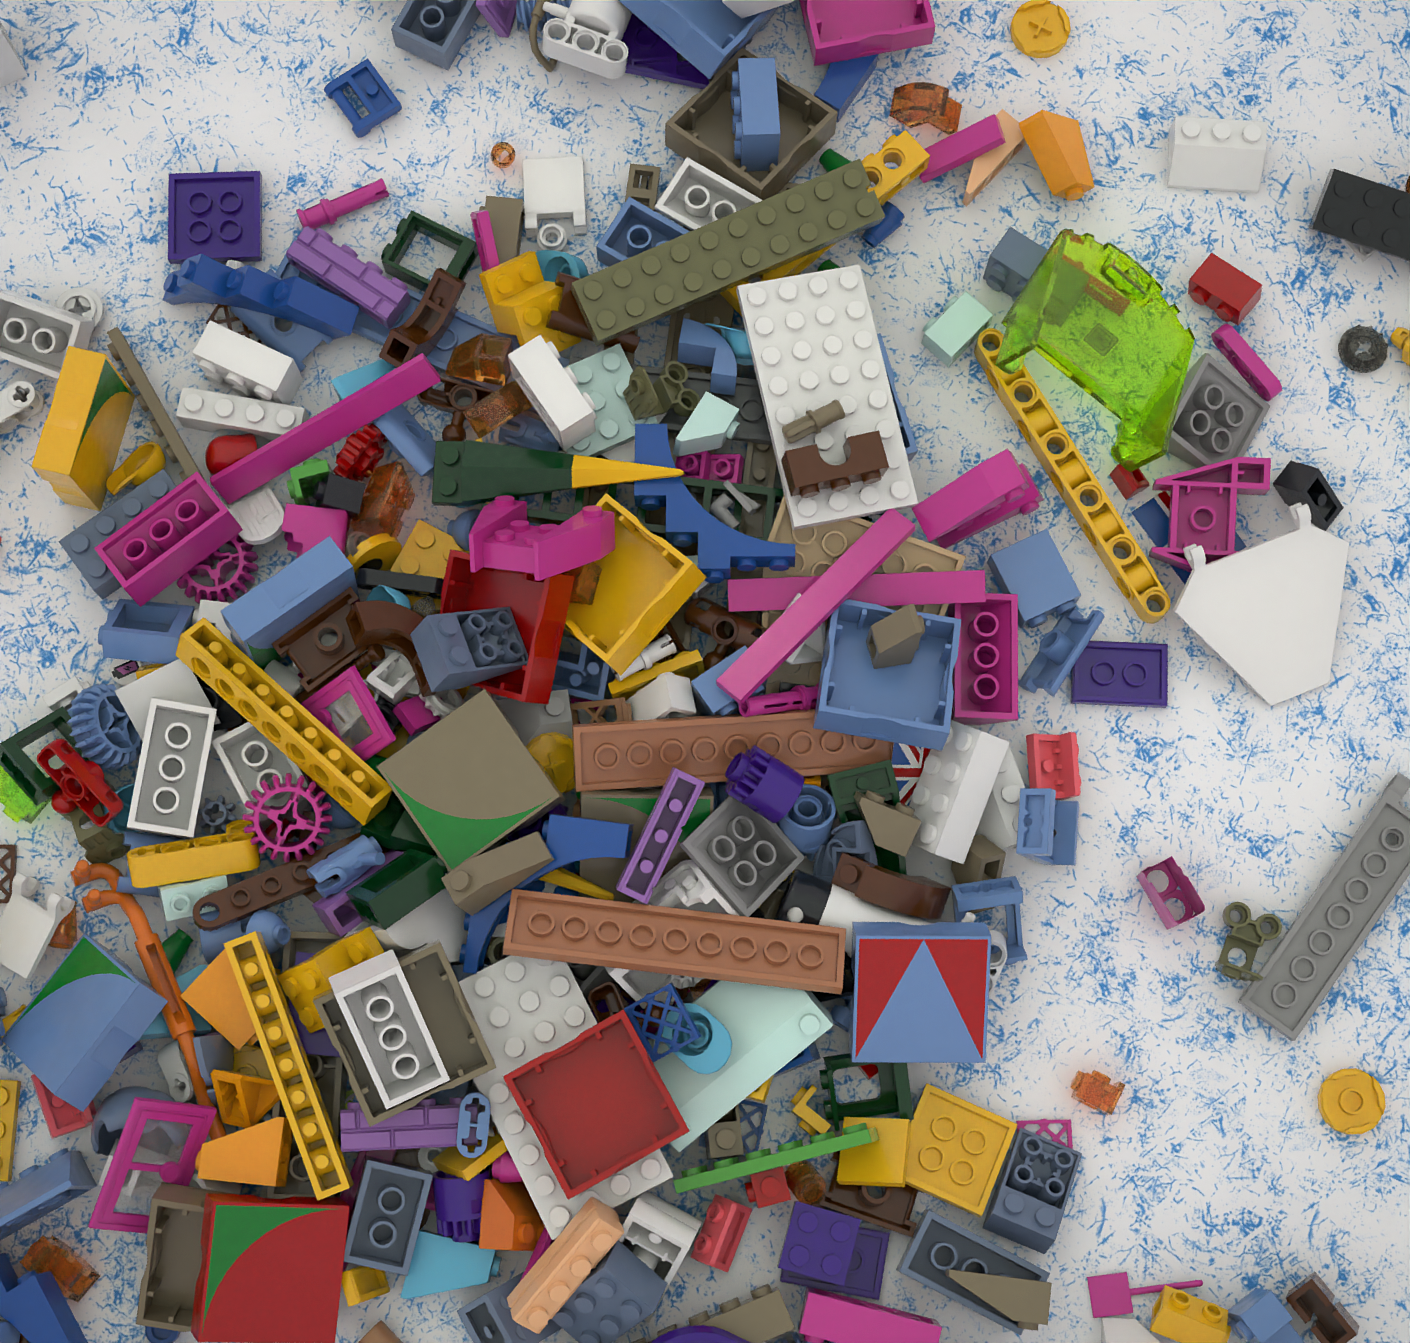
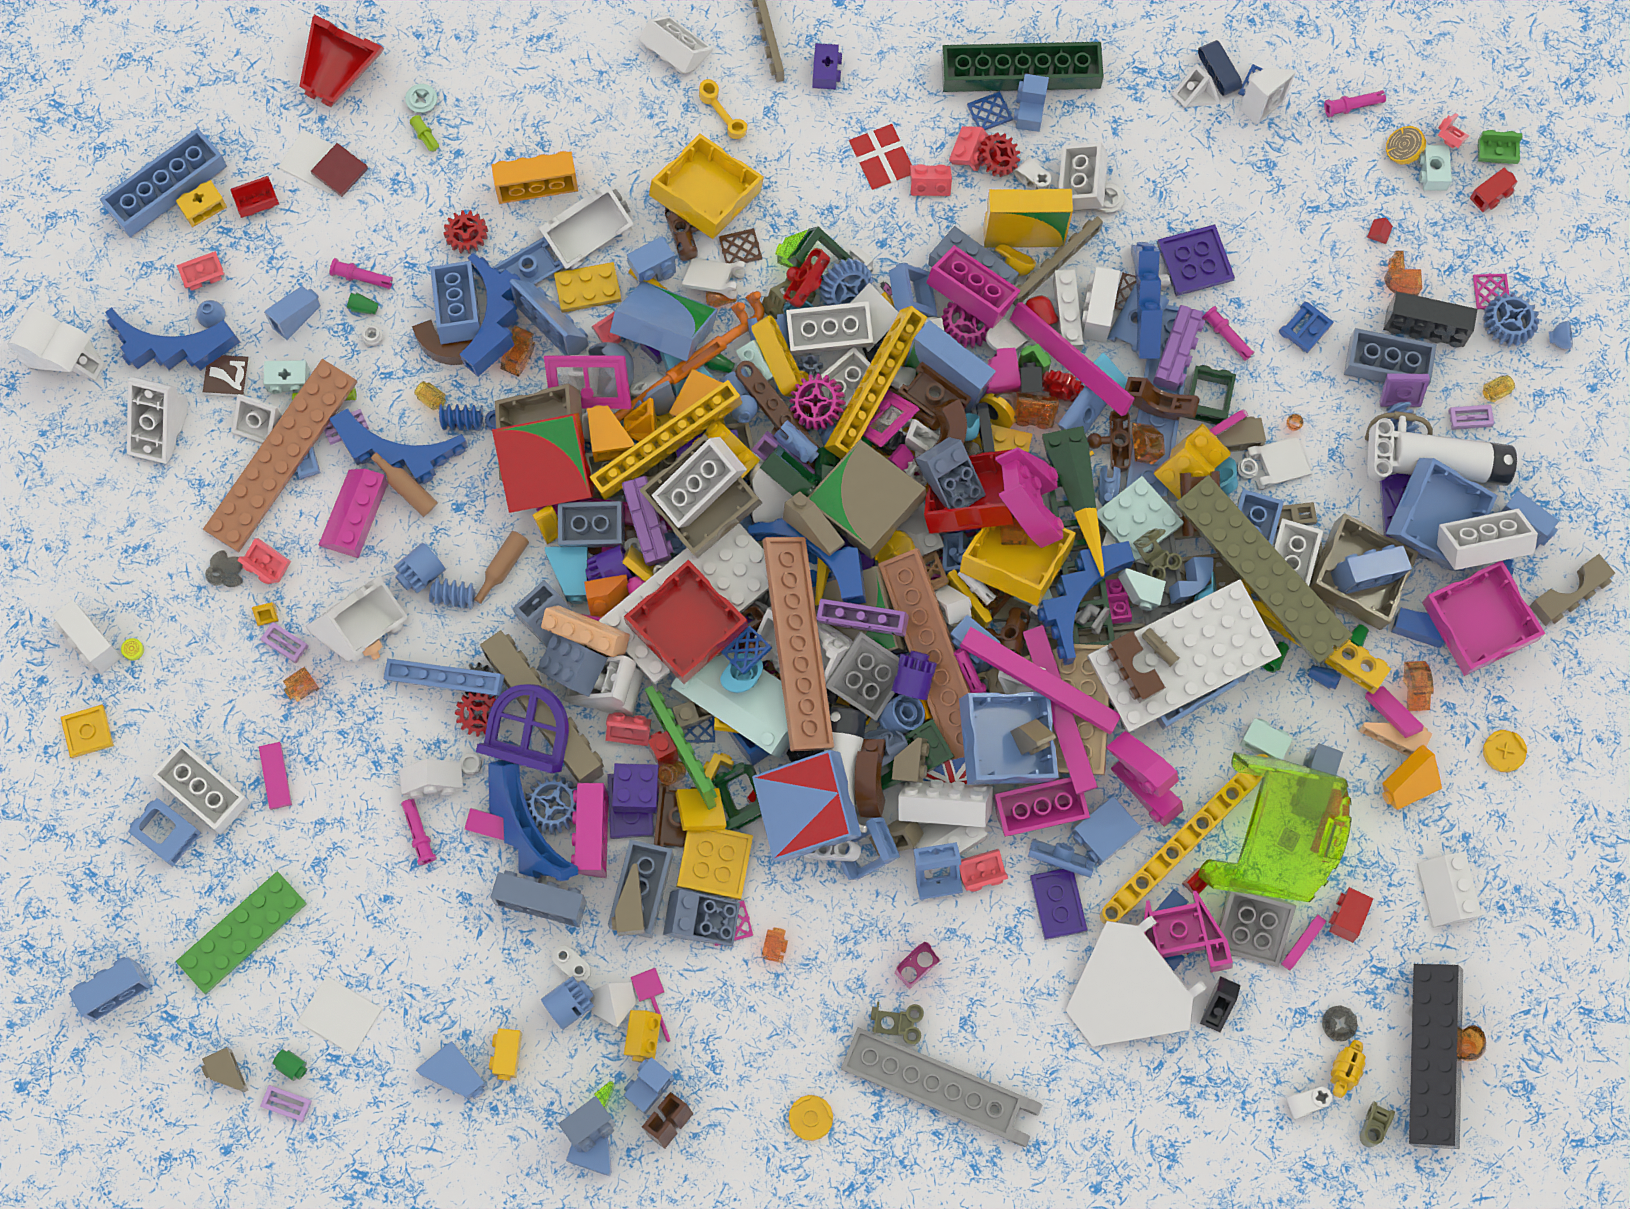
camera: 75 degrees right, 5 degrees down
(464, 1125) = (655, 550): medium blue beam -> none
(497, 409) = (1118, 460): clear orange brick -> none
(553, 391) = (1133, 484): white brick -> none

